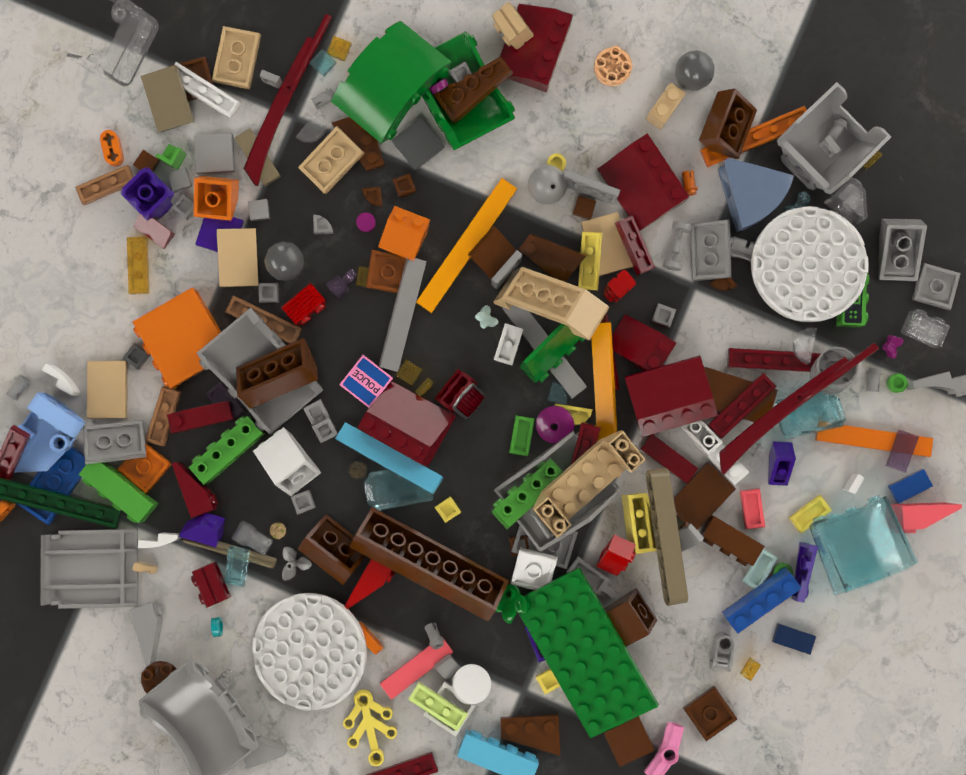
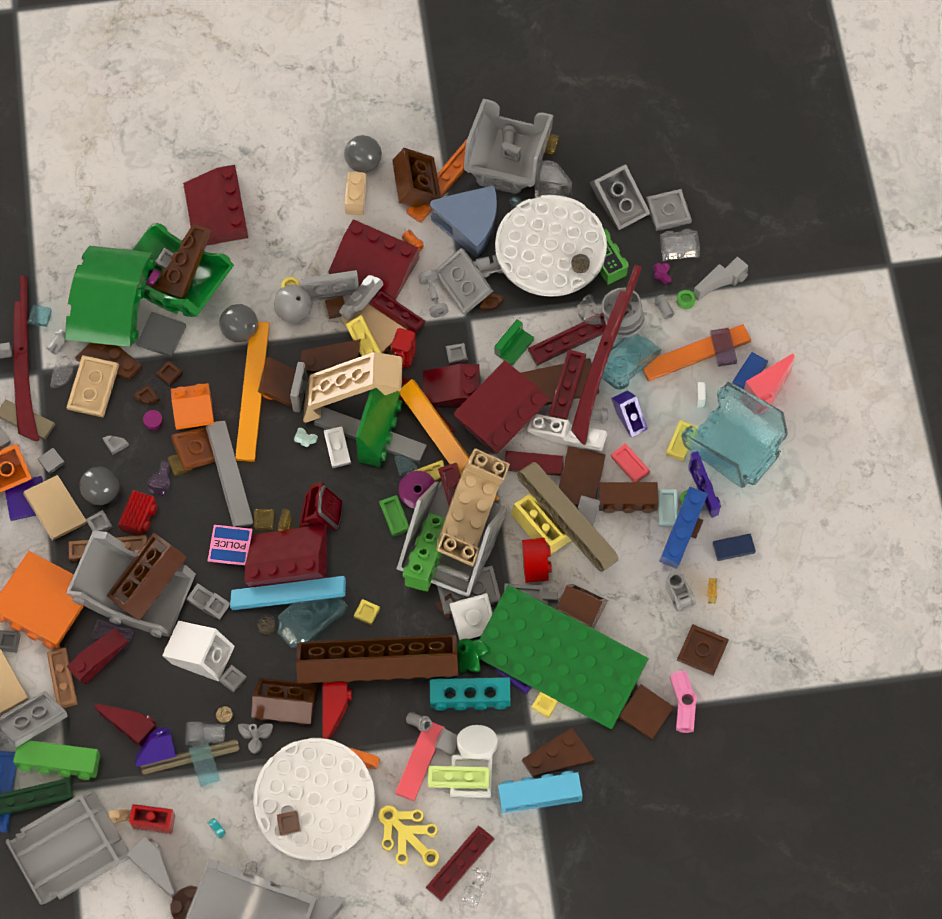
camera: 30 degrees left, 20 degrees down
(145, 471) = (71, 730): orange tile -> none
(163, 539) = (126, 778): white slope -> none
(167, 589) = (152, 818): none -> red brick
(210, 584) = (189, 794): dark red brick -> none
(226, 450) = (138, 670): bright green brick -> none
(276, 660) = (288, 823): none -> reddish brown tile
(339, 48) = (47, 297): clear yellow tile -> none
(489, 175) = (238, 323): none -> dark grey piece
(512, 25) = (188, 200): tan brick -> none
(512, 658) = (460, 687): none -> teal brick
(611, 213) = (361, 296): none -> light grey hinge
(612, 66) = (292, 188): light nougat tile -> none
(719, 336) = (513, 343): none -> green panel
(825, 300) = (580, 263): none -> clear smoke tile

